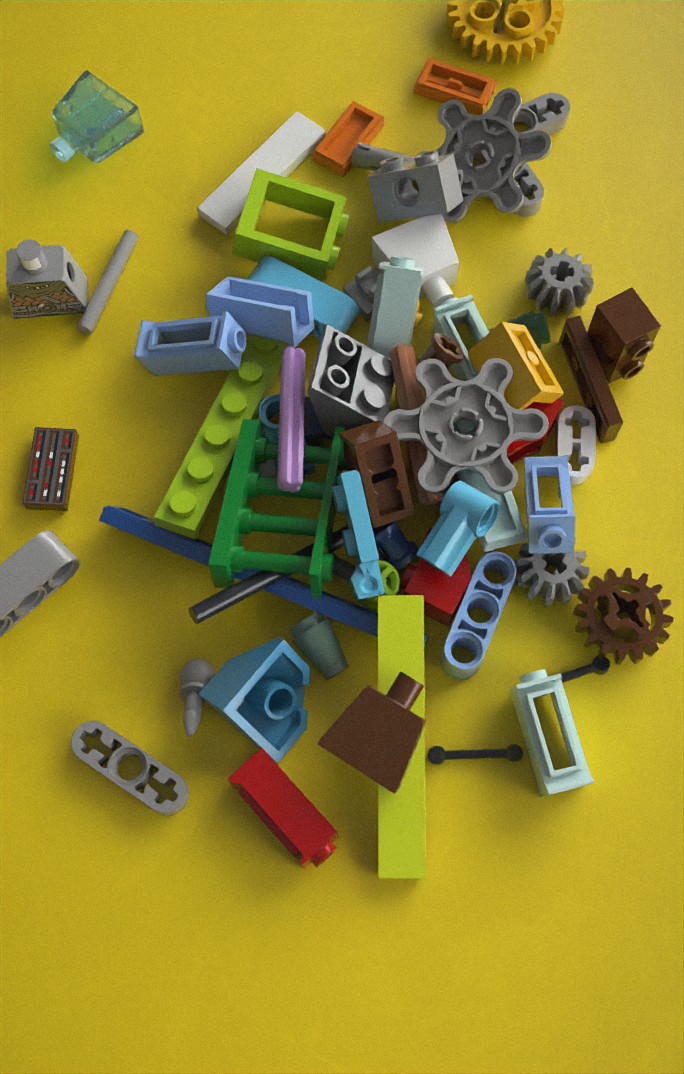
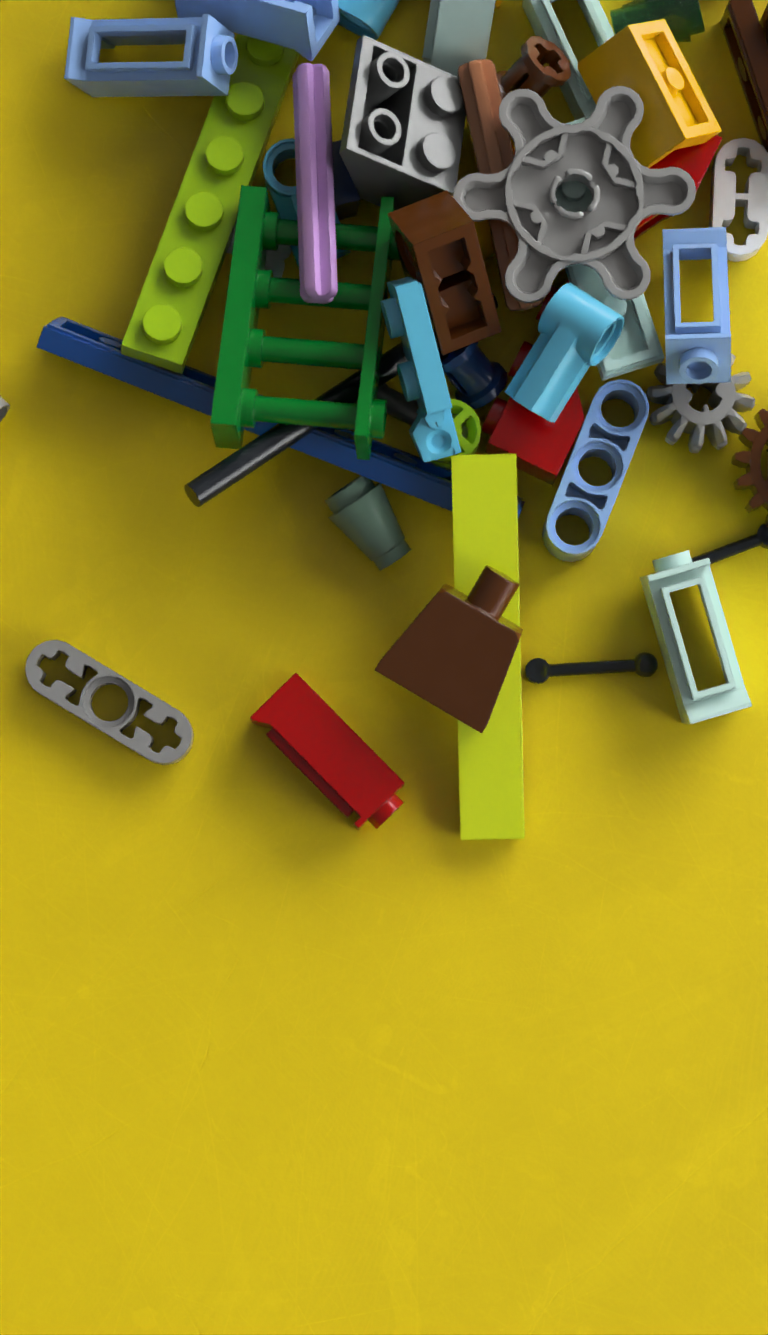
camera: 10 degrees left, 15 degrees up
(194, 677) = (193, 573): light grey bar -> none
(262, 696) = (291, 598): dark azure slope -> none

